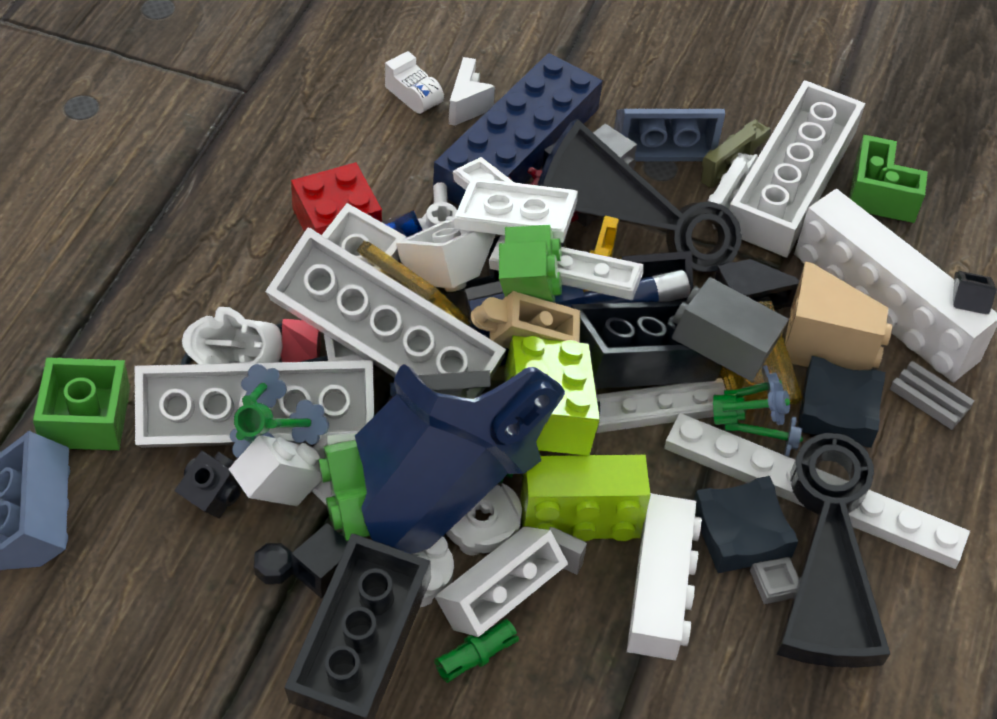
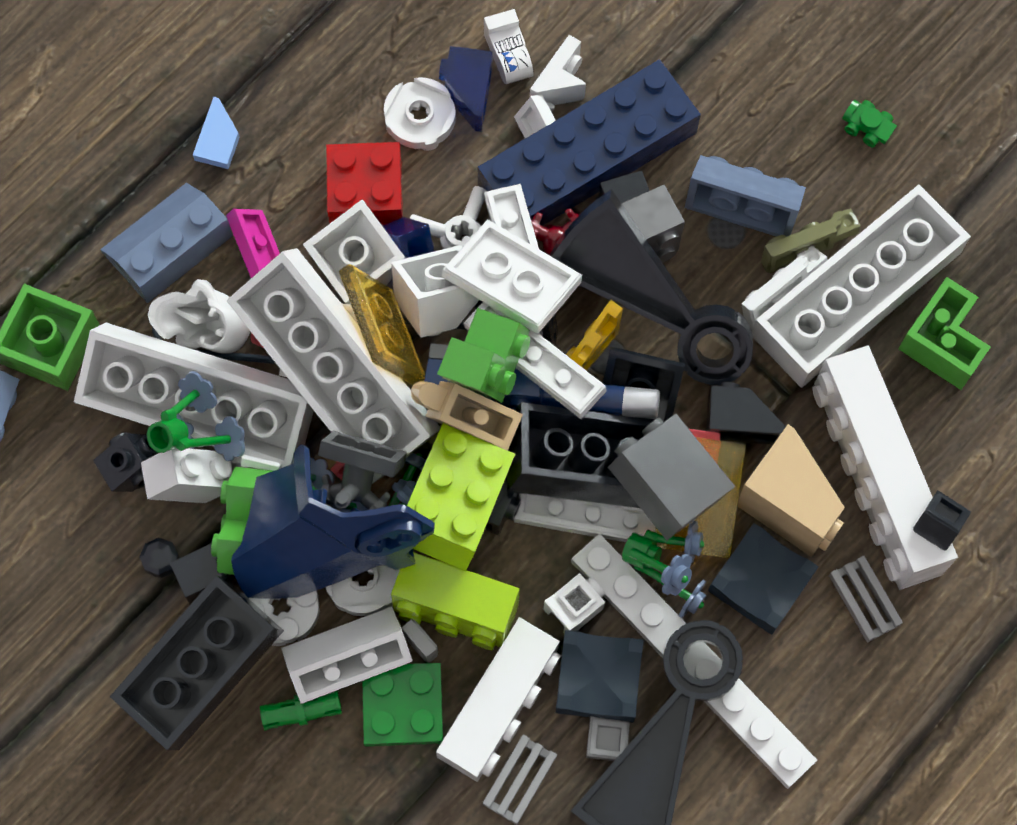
camera: 25 degrees right, 20 degrees up
(170, 300) = (168, 241): none -> sand blue slope
(181, 213) = (217, 137): none -> light blue tile
(250, 274) = (253, 238): none -> dark pink hinge
(376, 147) = (422, 133): none -> white plate
(391, 116) = (468, 80): none -> clear blue slope
(458, 122) = (534, 115): none -> white tile
(573, 615) = (403, 706): none -> green plate
(691, 468) = (576, 602): none -> white window
(719, 612) = (536, 750): none -> light grey tile
(733, 62) = (869, 120): none -> green piece

